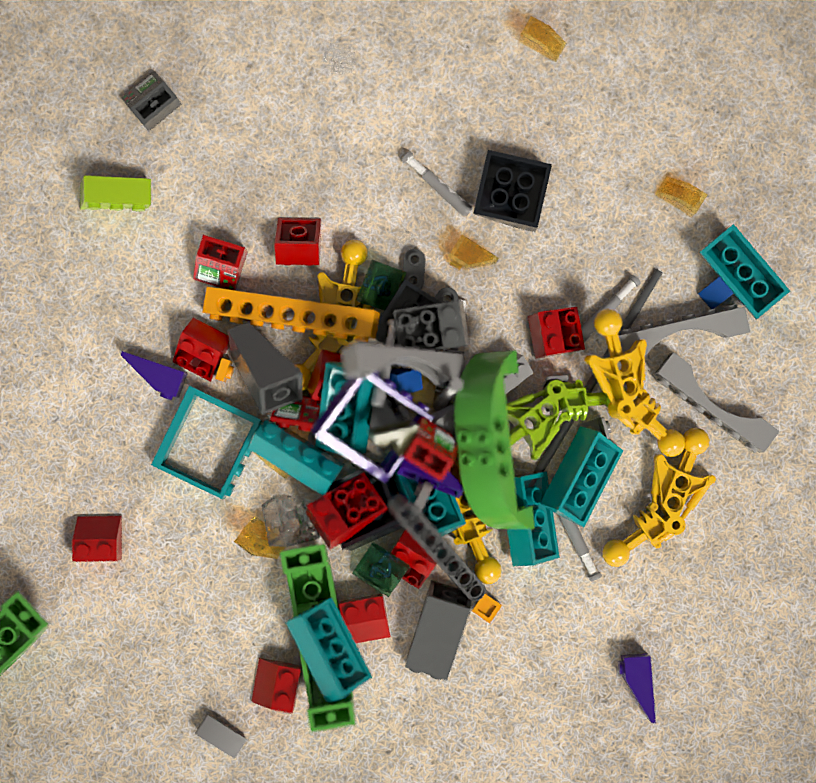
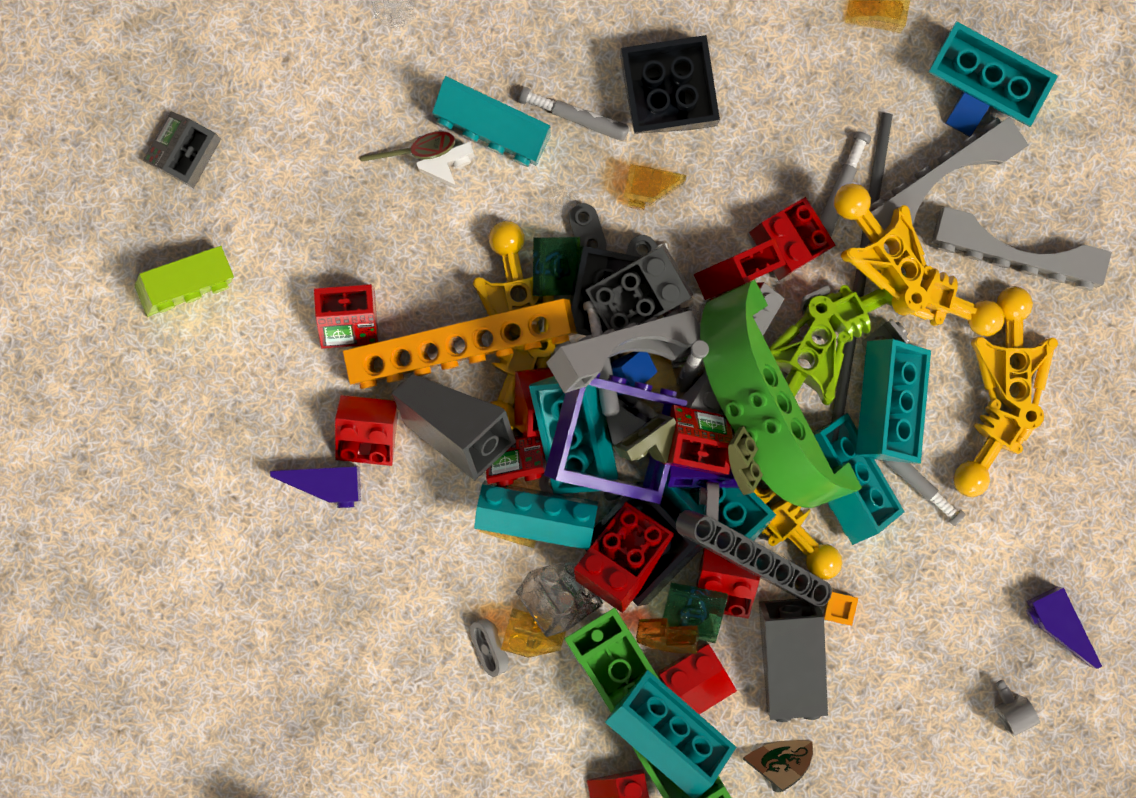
camera: 20 degrees left, 0 degrees up
(97, 539) = (331, 713): red slope -> none
(175, 428) = (373, 537): teal window -> none
(225, 370) = (405, 445): light orange plate -> none
(226, 536) = (488, 646): none -> light grey plate
(298, 241) = (432, 251): red slope -> none
(321, 166) = (425, 147): none -> olive piece
(327, 182) = (439, 167): none -> white slope
(350, 576) = (658, 635): none -> clear orange slope
(375, 166) = (491, 122): none -> teal slope
(401, 700) = (782, 762): none -> shield
(454, 476) = (741, 455): none -> olive slope
(510, 339) = (739, 269): none -> red slope
(581, 730) = (1015, 712): none -> light grey piece

